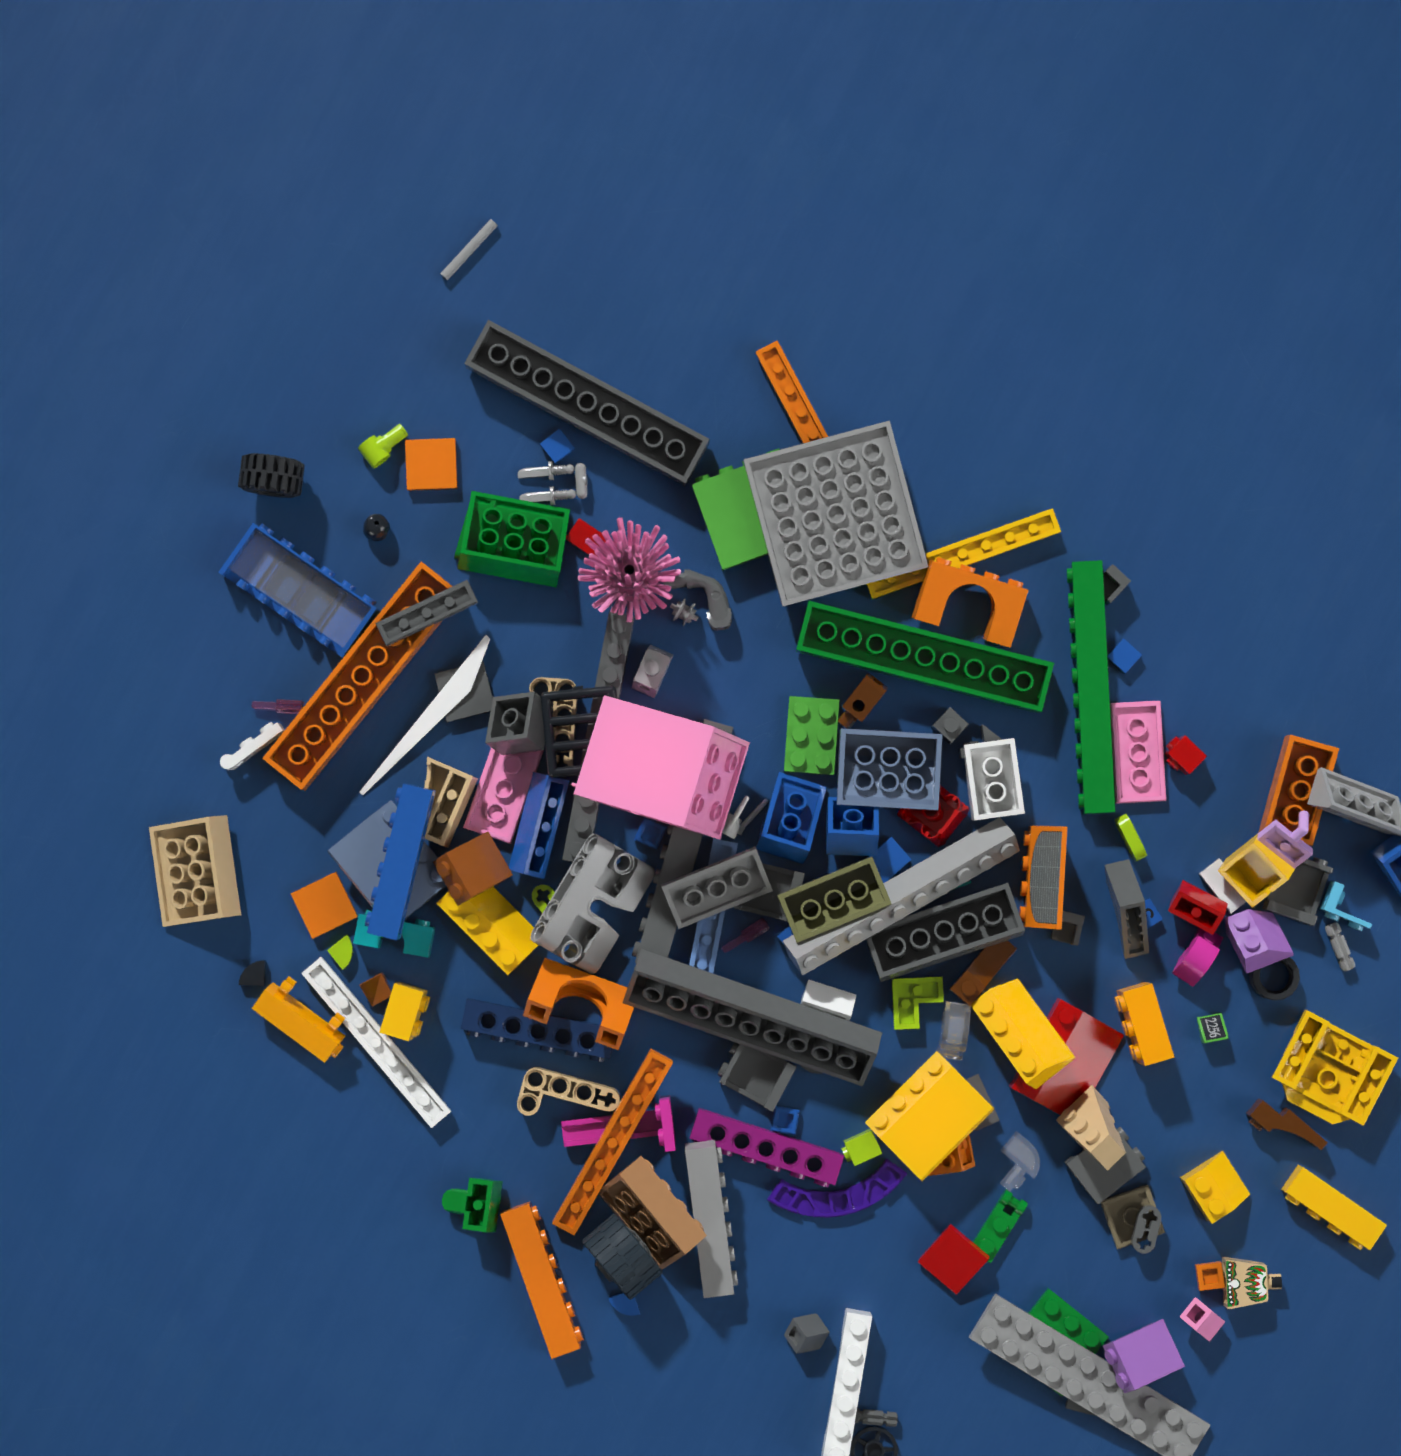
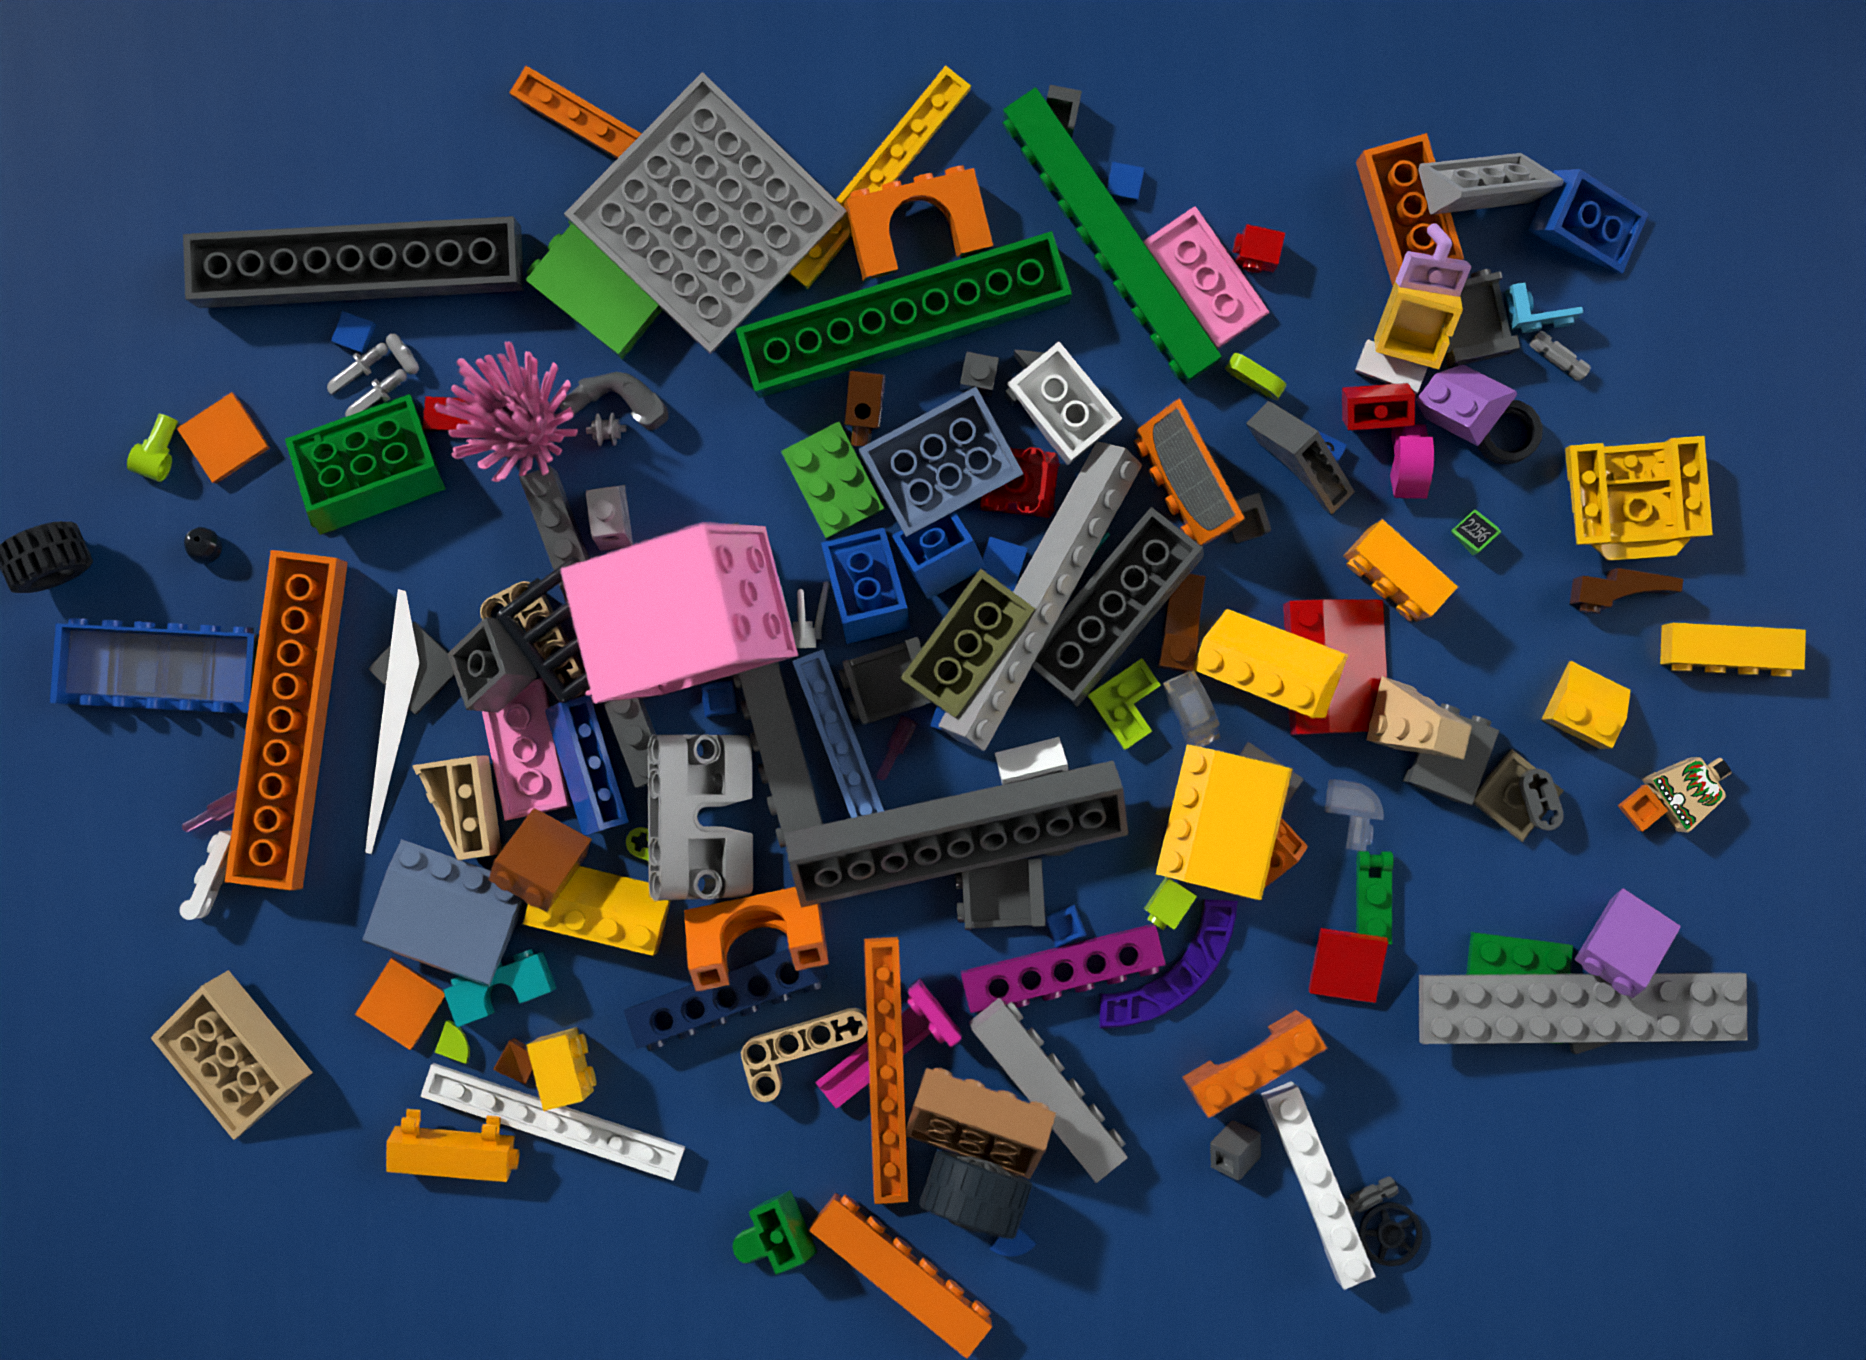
camera: 30 degrees left, 0 degrees up
(254, 974) = (369, 1130): black tile -> none
(401, 861) = (449, 902): blue brick -> none
(427, 613) = (311, 603): dark grey tile -> none
(469, 249) = (121, 175): light grey bar -> none
(716, 887) = (827, 712): light grey slope -> none
(883, 1285) = (1290, 1044): none -> orange arch
(1202, 1319) = (1665, 861): bright pink brick -> none

